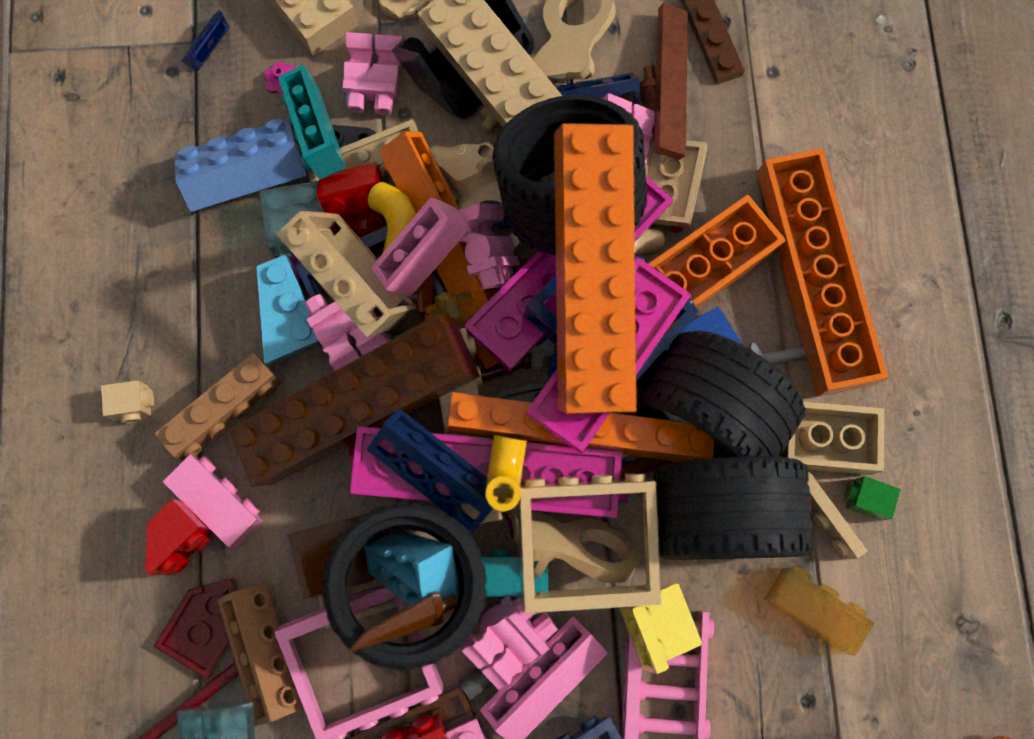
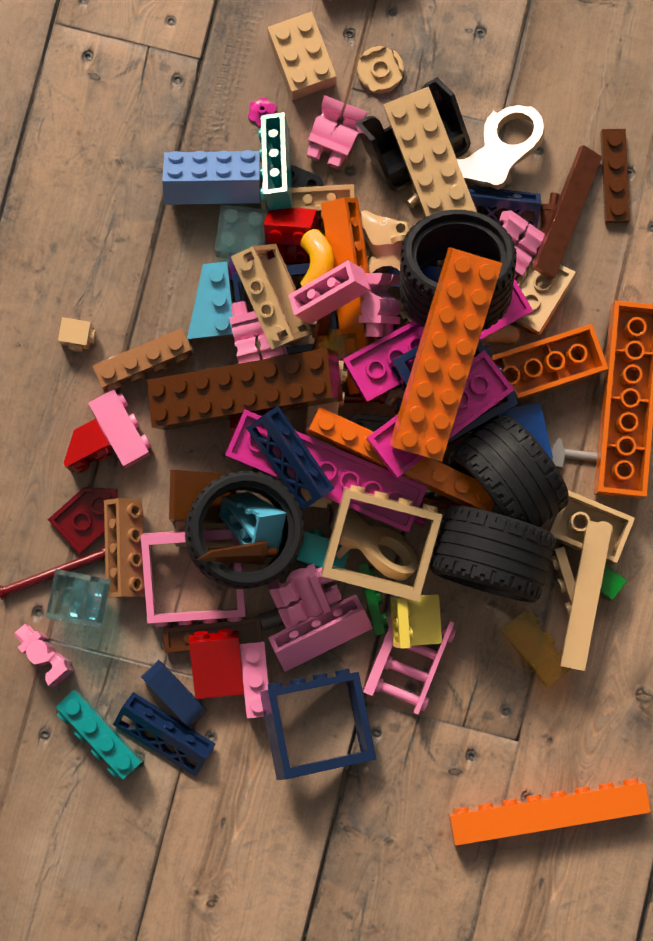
camera: 15 degrees right, 5 degrees up
(206, 41) = (211, 63): clear blue slope -> none
(505, 472) = (339, 474): yellow cylinder -> none
(611, 639) = (373, 599): none -> green plate
(862, 526) = (586, 595): none -> tan tile

